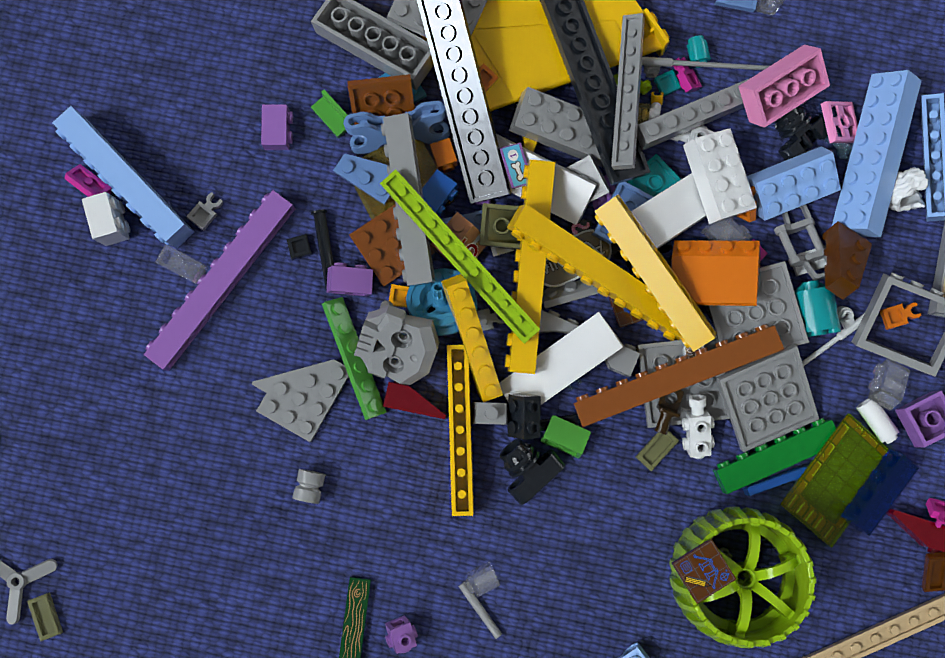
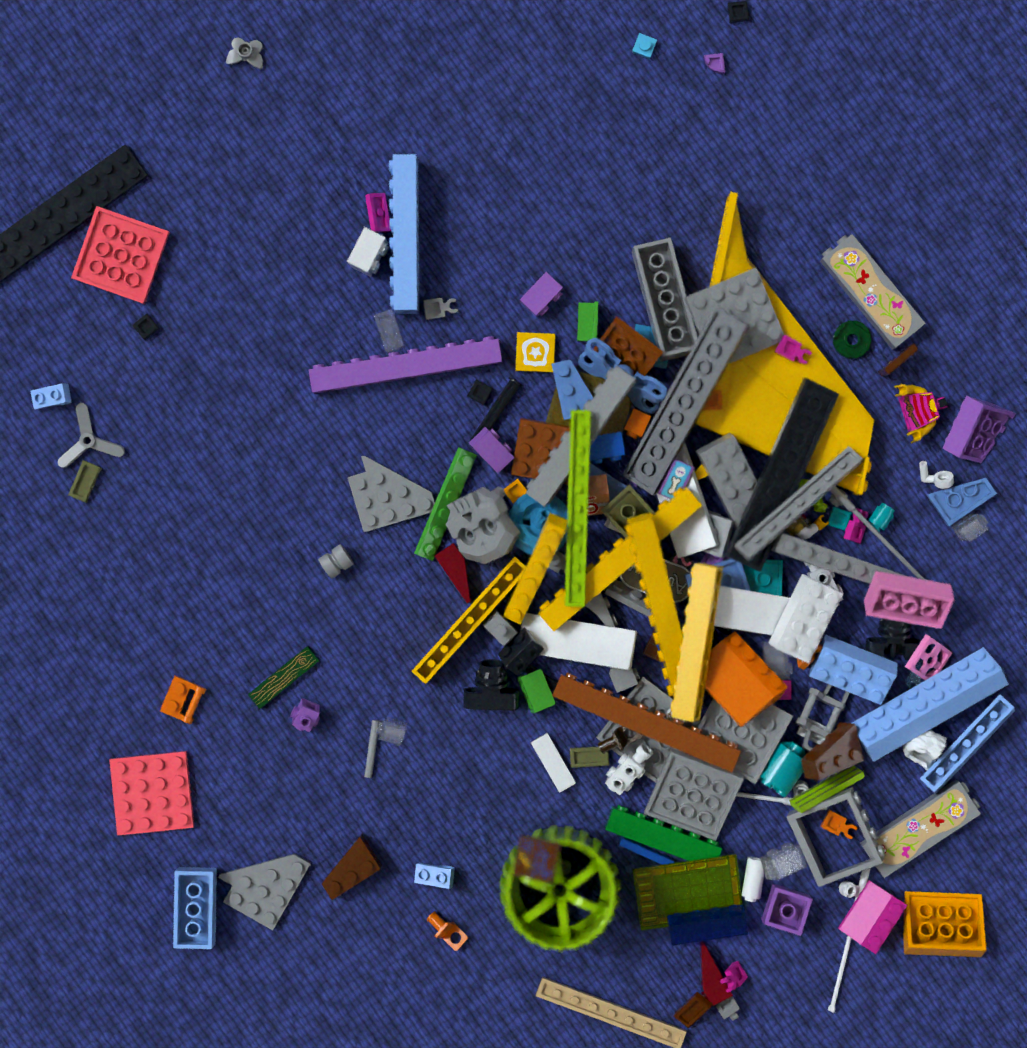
camera: 45 degrees right, 5 degrees up
(313, 176) = (535, 352): none -> yellow tile
(633, 480) = (553, 762): none -> white tile
(865, 296) = (826, 789): none -> lime tile

